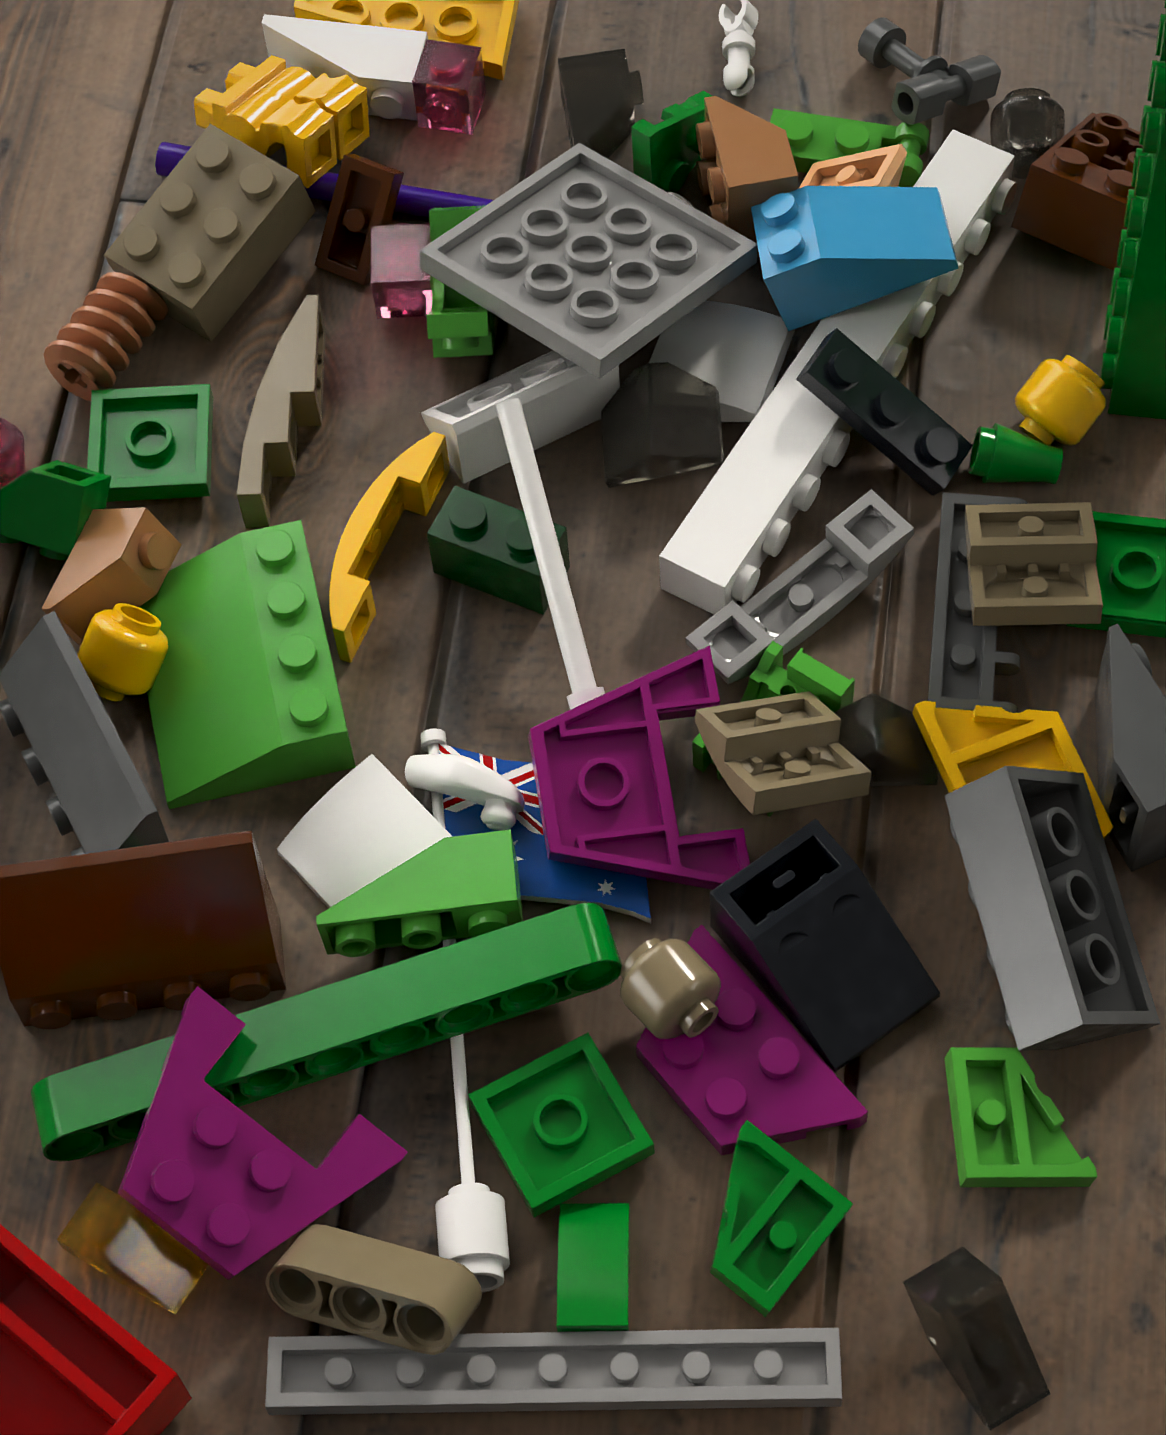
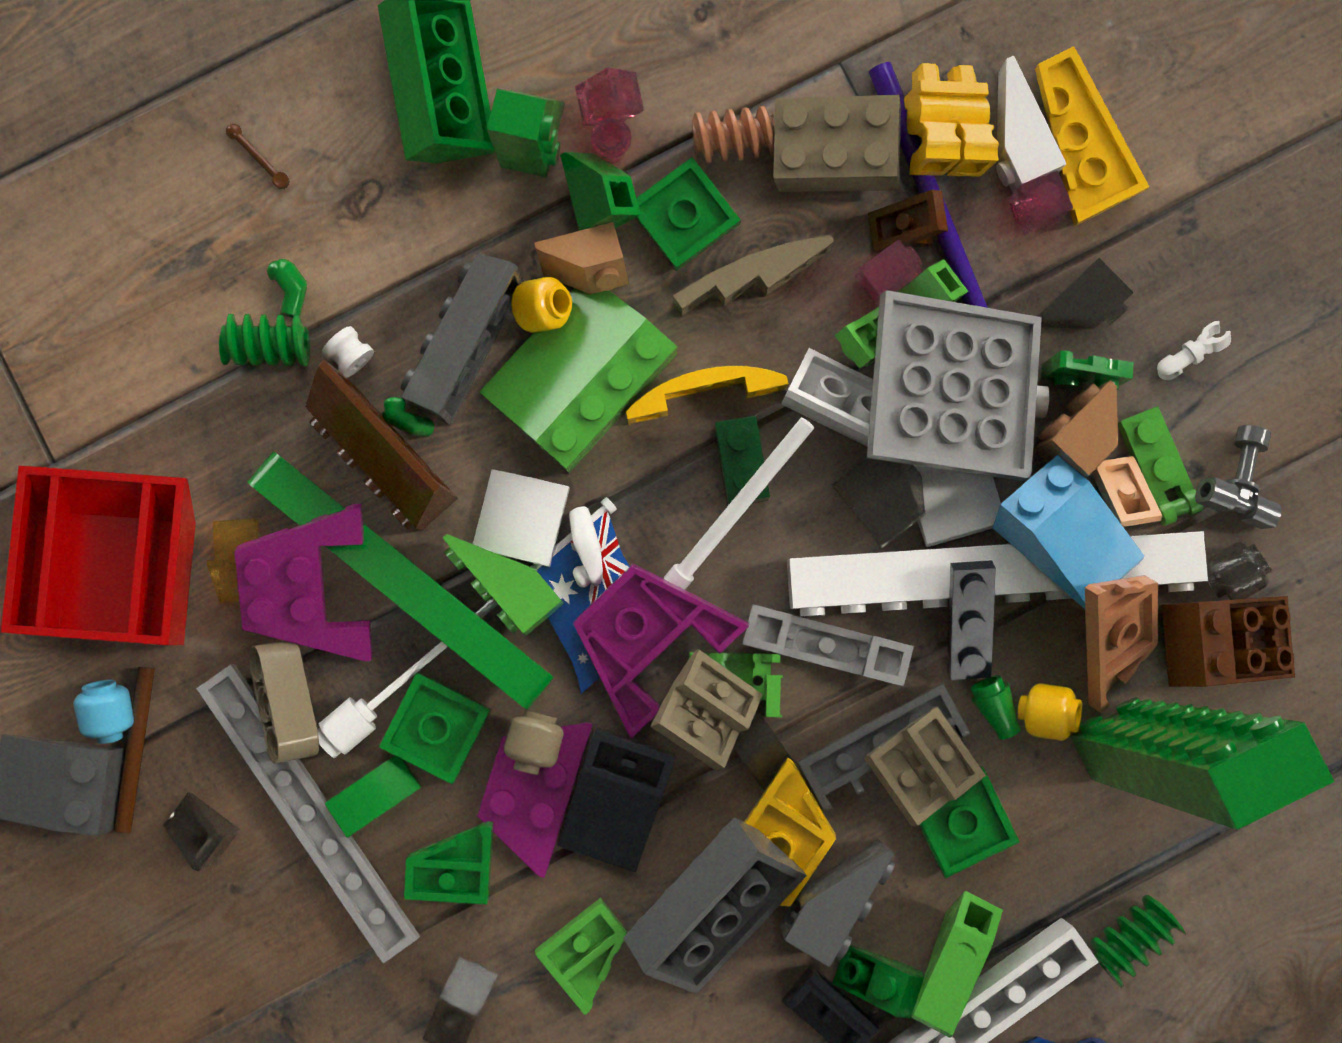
camera: 50 degrees right, 25 degrees up
(1015, 269) = (1118, 632): none -> nougat wing

